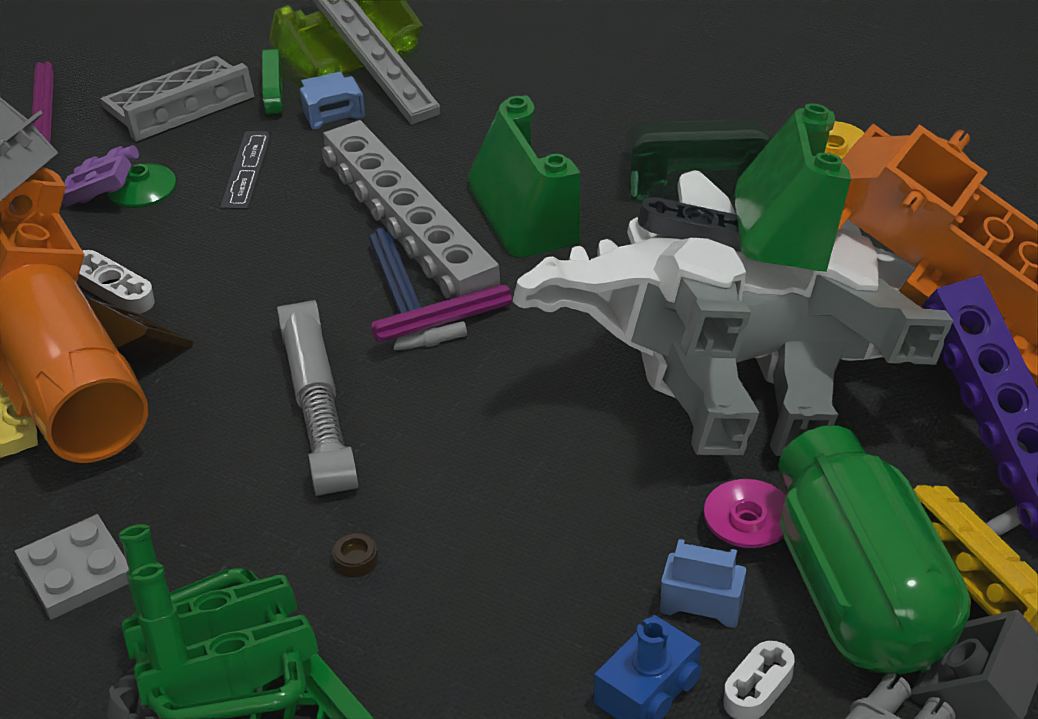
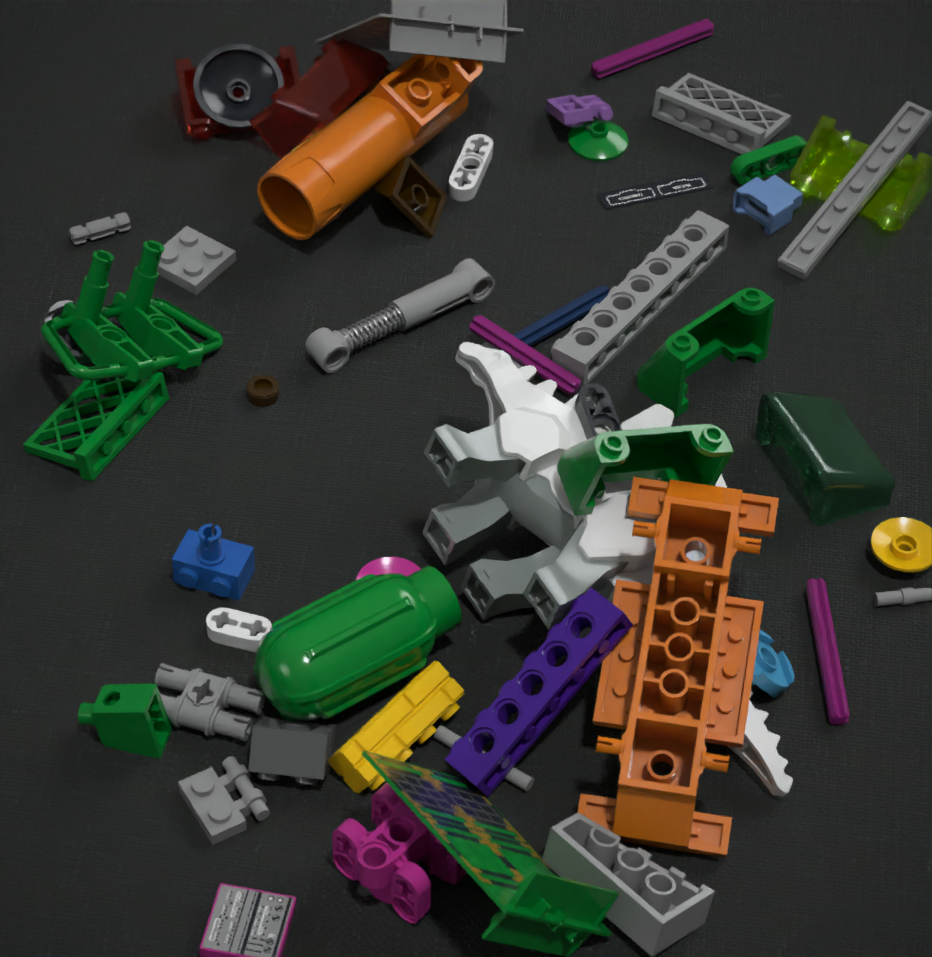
camera: 65 degrees right, 5 degrees up
(703, 583) = (302, 571): medium blue piece -> none

